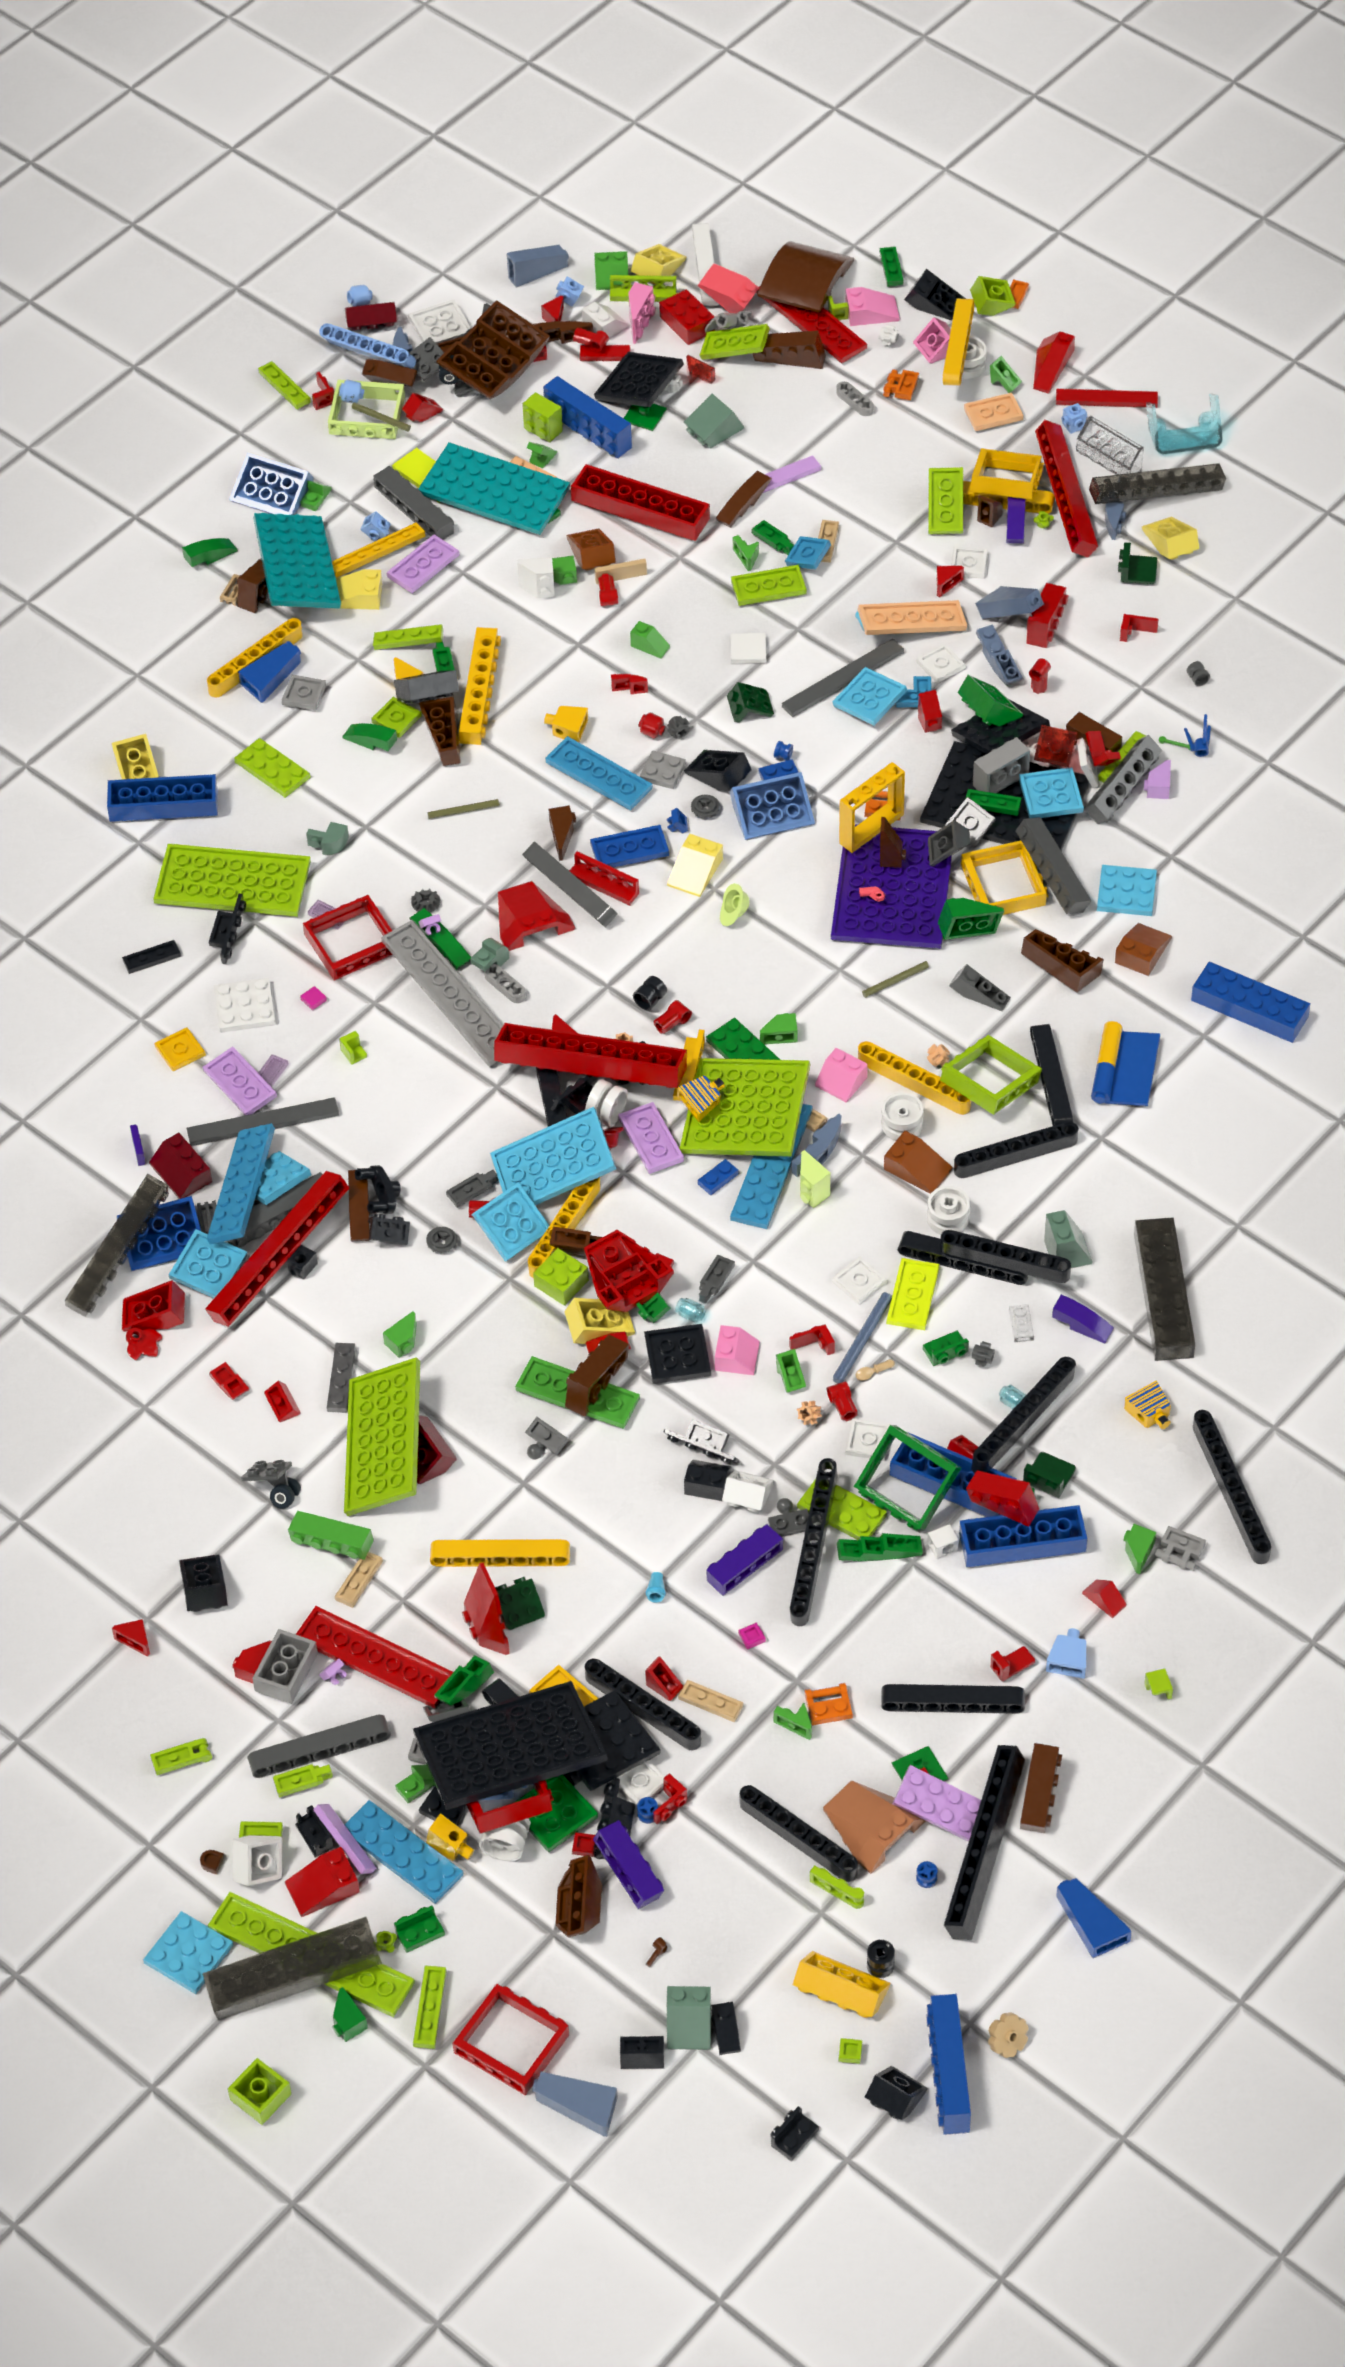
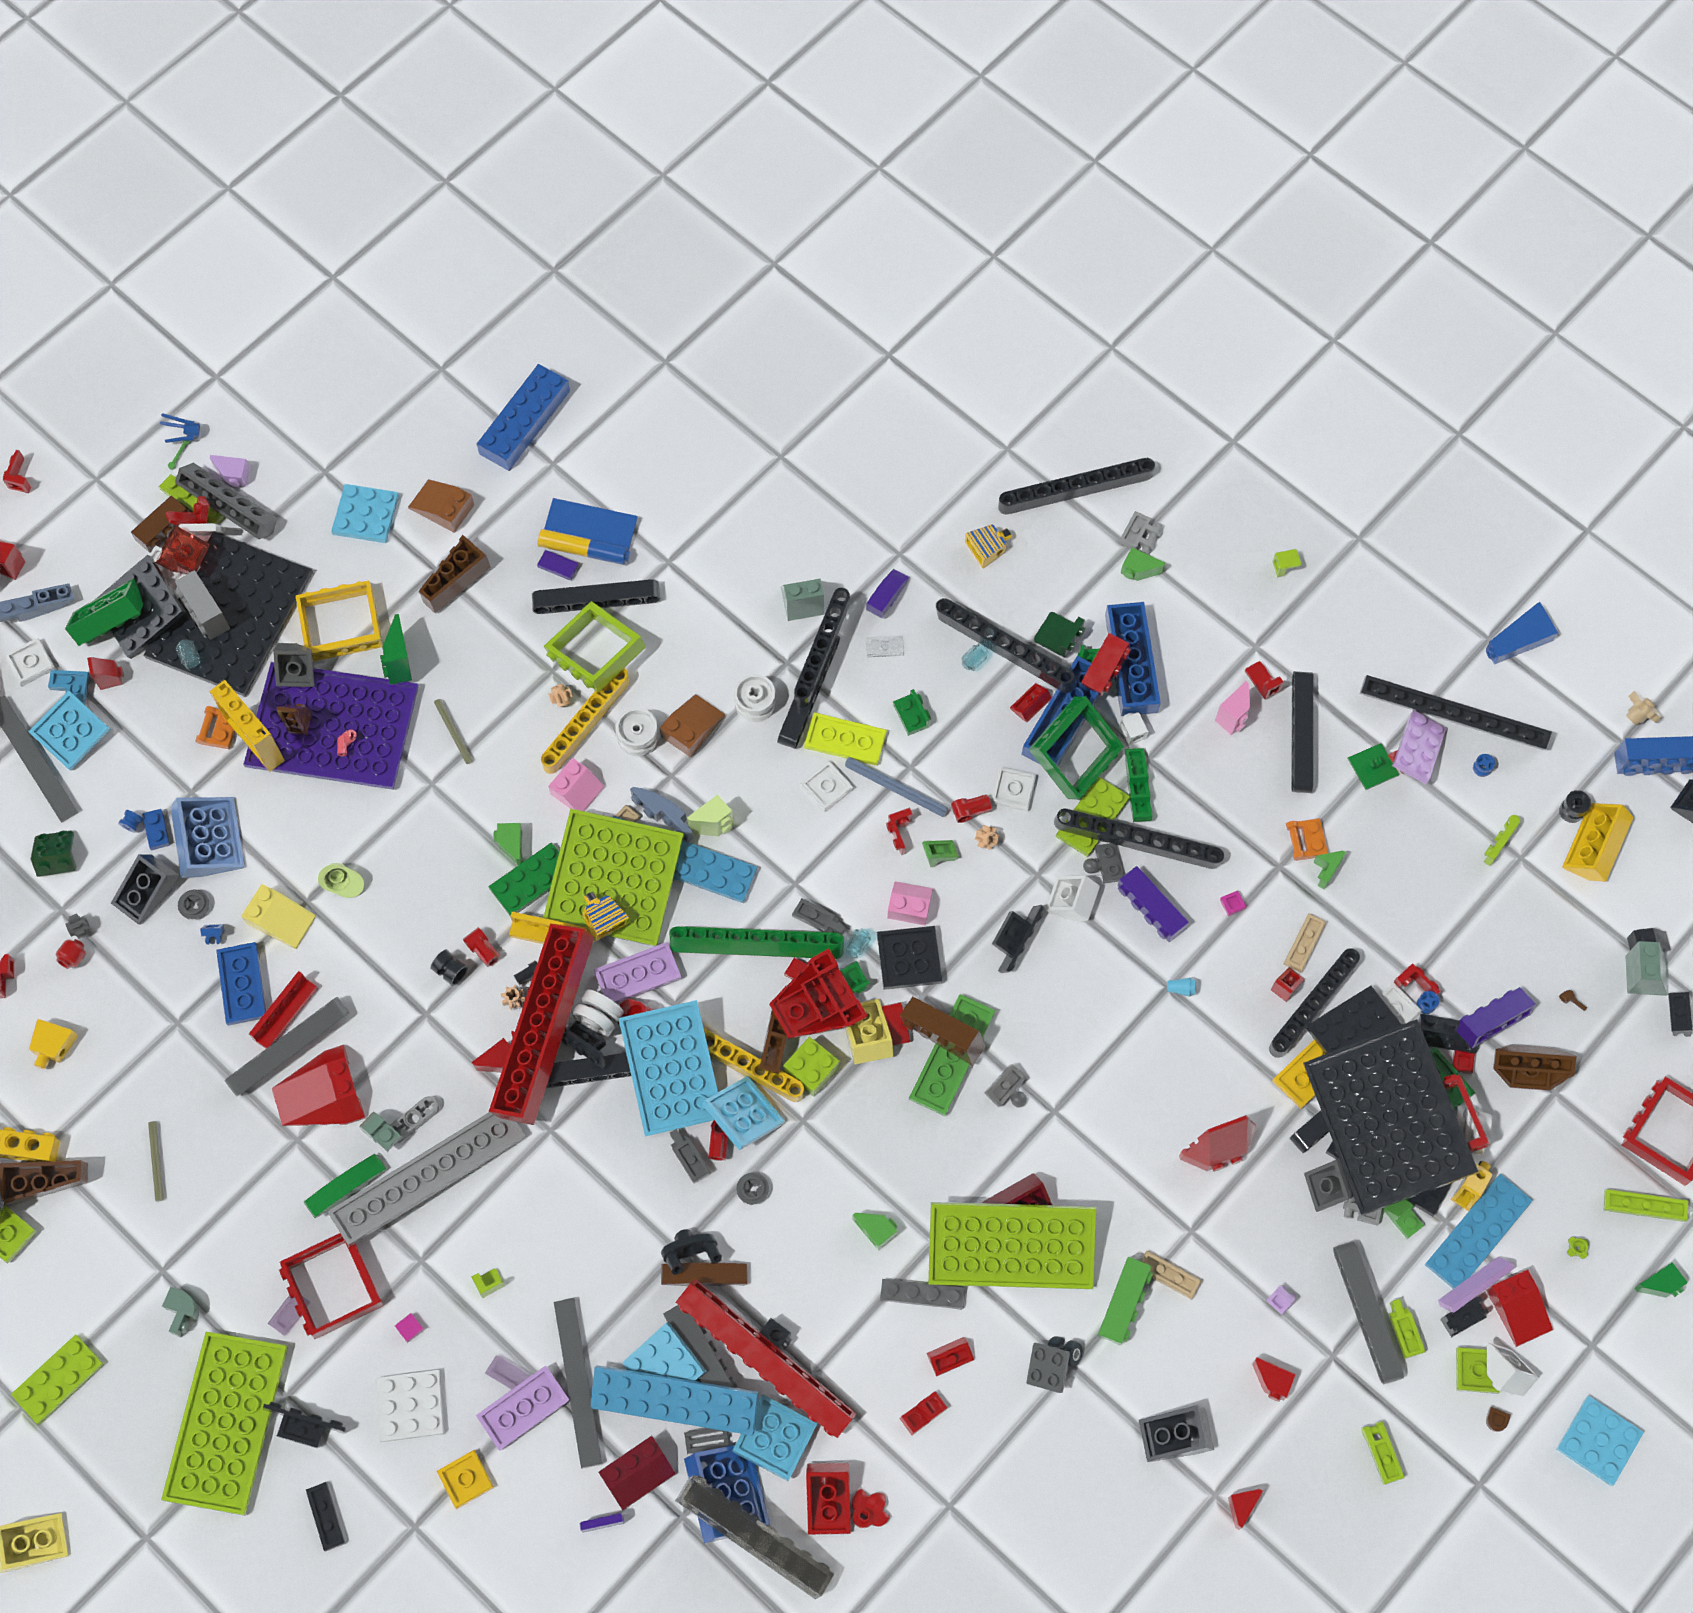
camera: 90 degrees left, 15 degrees up
(162, 797) = (91, 1507): blue brick -> none
(265, 1930) = (1596, 1320): lime plate -> none
(285, 1666) = (1282, 1344): light grey brick -> none
(292, 1968) = (1626, 1333): clear smoke brick -> none
(371, 736) = (31, 1264): green slope -> none
(374, 1656) = (1263, 1258): red plate -> none
(389, 1230) = (741, 1241): black bracket -> none
(418, 1928) = (1564, 1215): green bracket -> none
(430, 906) = (283, 1212): dark grey gear -> none
(430, 922) = (332, 1191): lavender tile -> none
(464, 1681) = (1296, 1169): green slope -> none
(500, 1553) = (1143, 1134): yellow beam -> none
(519, 1603) = (1197, 1115): dark green bracket -> none
(562, 827) = (202, 1053): reddish brown slope -> none
(599, 773) = (128, 1013): dark azure plate -> none
(663, 769) = (133, 947): light grey plate -> none
(685, 1227) = (754, 942): none -> green beam
(706, 1479) = (1057, 934): black slope -> none
(718, 1177) = (690, 911): blue plate -> none
(803, 1841) = (1444, 878): black beam -> none
(850, 2050) = (1662, 838): lime plate -> none
(866, 1372) = (937, 786): tan piece -> none
(869, 1822) = (1431, 809): nougat wedge -> none
(953, 767) = (188, 653): none -> clear light blue brick
(970, 1629) = (1234, 710): none -> bright pink slope
(973, 818) = (260, 643): tile -> none
(979, 989) = (477, 654): dark grey slope -> none
(983, 1353) = (924, 679): dark grey gear -> none
(995, 802) = (240, 620): green plate -> none
(1016, 1149) = (683, 626): black beam -> none
(1039, 675) = (74, 563): red piece -> none
(1039, 1788) = (1396, 664): reddish brown wedge -> none
(1051, 793) = (237, 566): medium azure plate -> none
(1053, 865) = (334, 570): dark grey brick -> none
(1068, 1655) = (1255, 632): light blue torso -> none
(1085, 1046) = (557, 565): none -> dark purple tile
(1105, 1596) = (1189, 600): red slope -> none
(1164, 1289) = (857, 520): clear smoke brick -> none
(1198, 673) = (88, 425): dark grey wheel -> none

